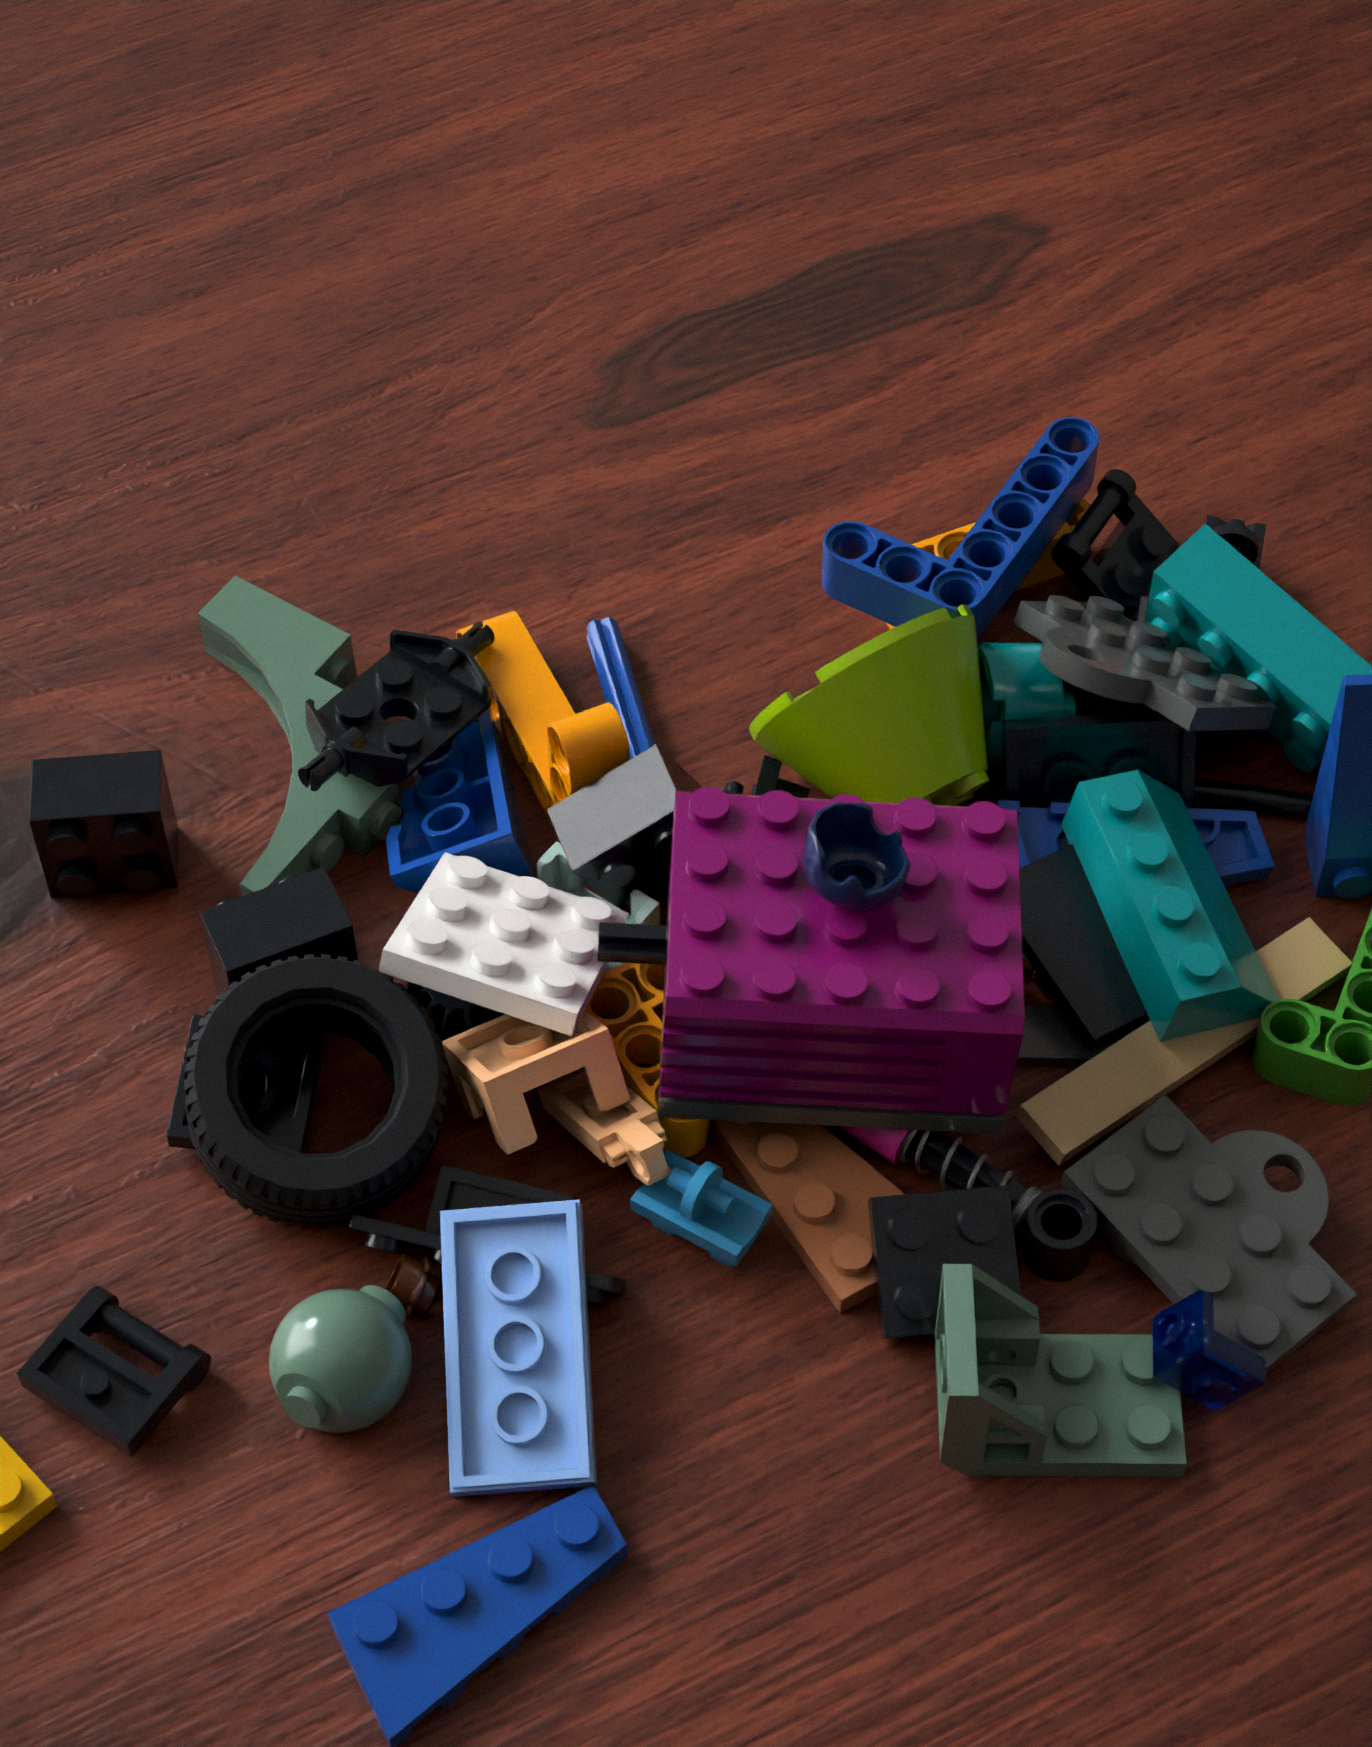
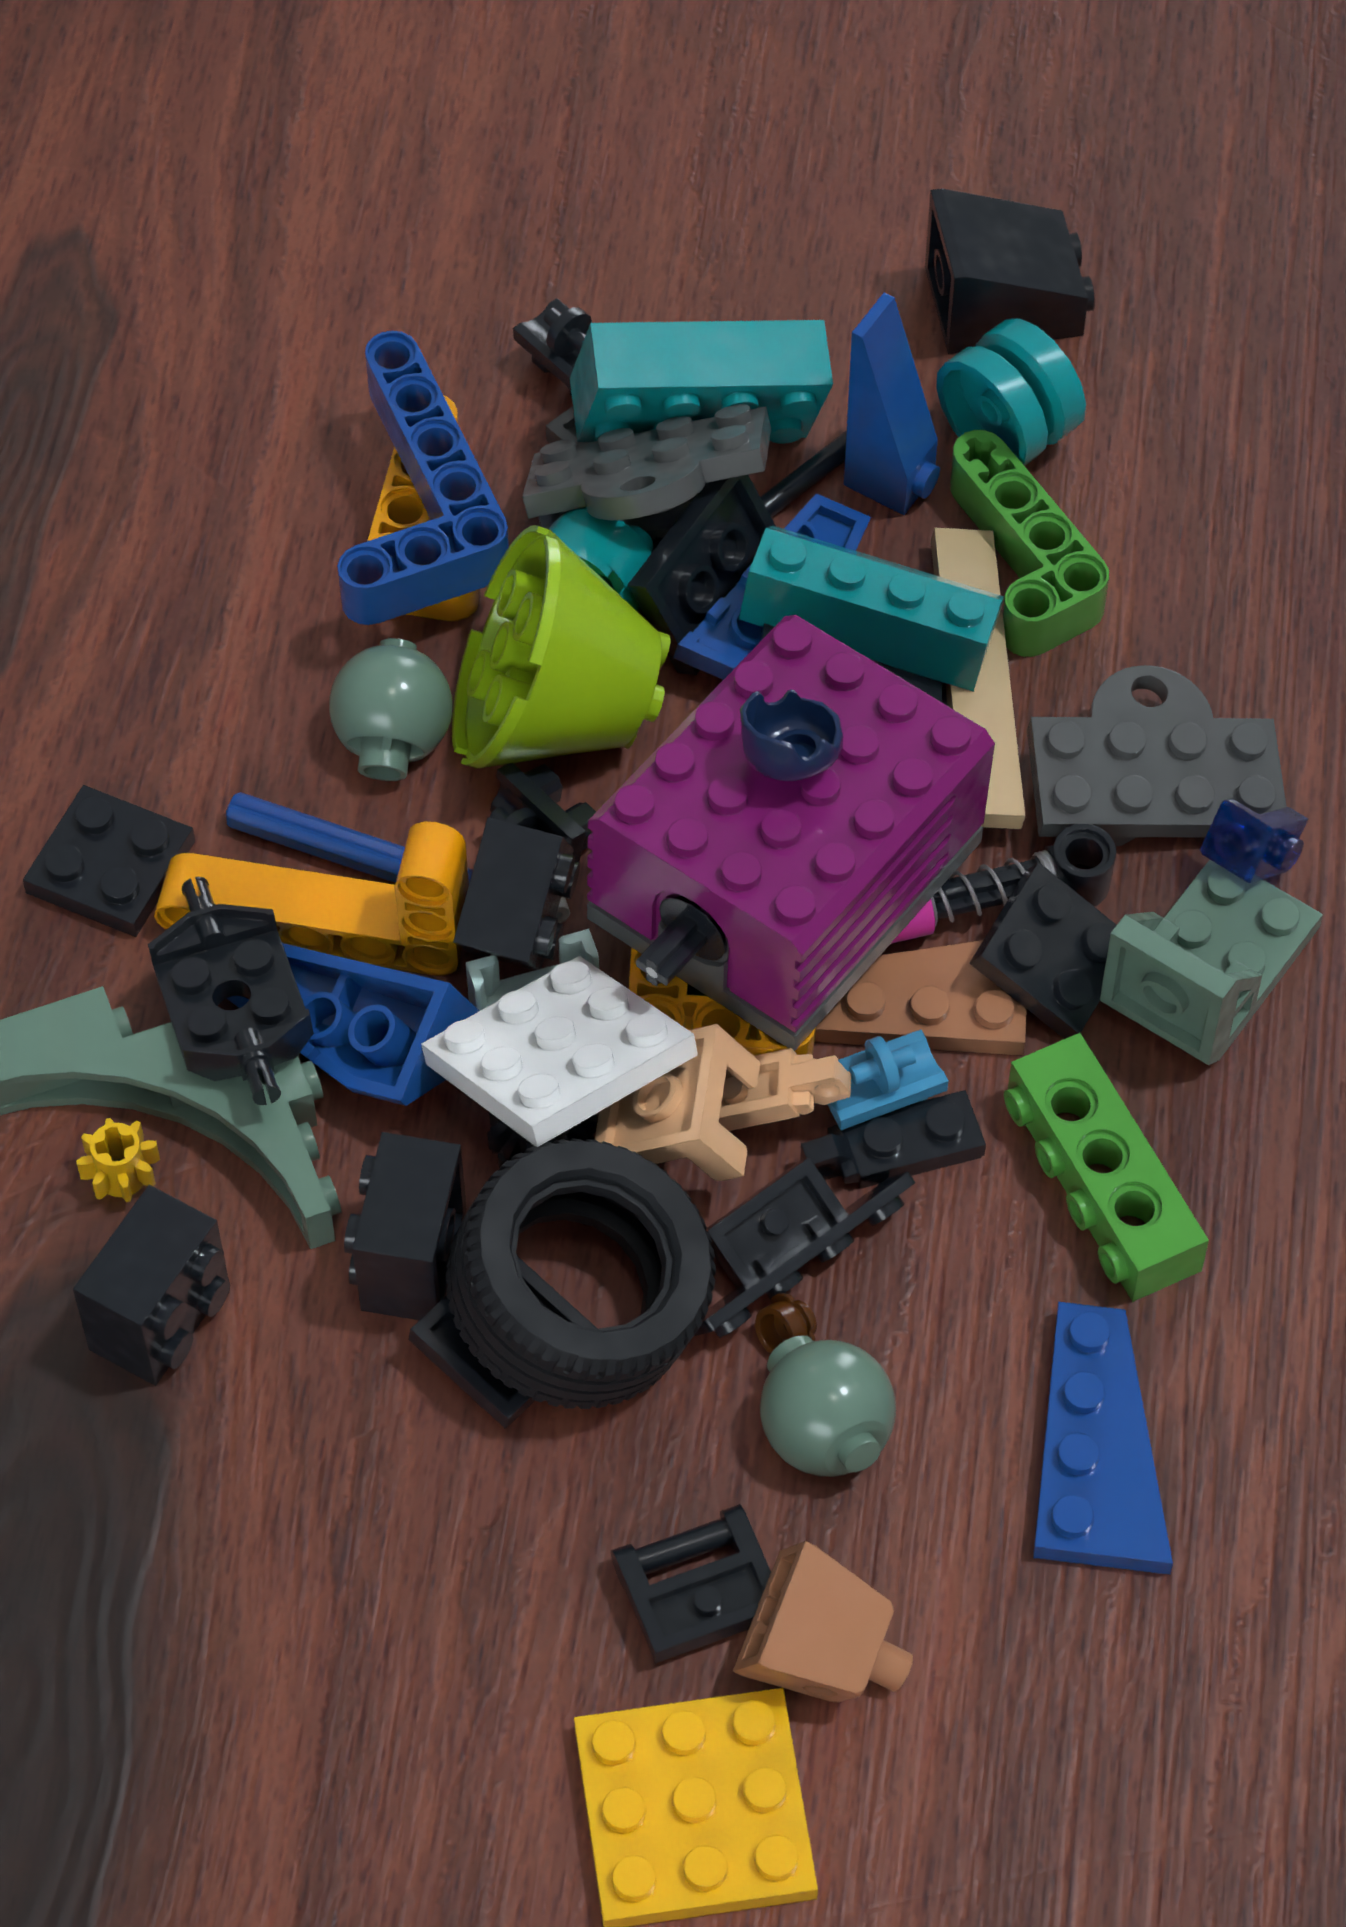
camera: 55 degrees left, 5 degrees up
(109, 1485) = (821, 1630): none -> nougat torso
(218, 745) = (113, 1143): none -> yellow gear
(491, 576) = (107, 860): none -> black plate
(517, 1349) = (912, 1277): light blue tile -> none
(665, 1267) = (905, 1140): none -> black hinge
(720, 1536) = (1072, 1081): none -> bright green brick
(767, 652) = (390, 708): none -> sand green brick
(1128, 556) = (489, 407): black plate -> none

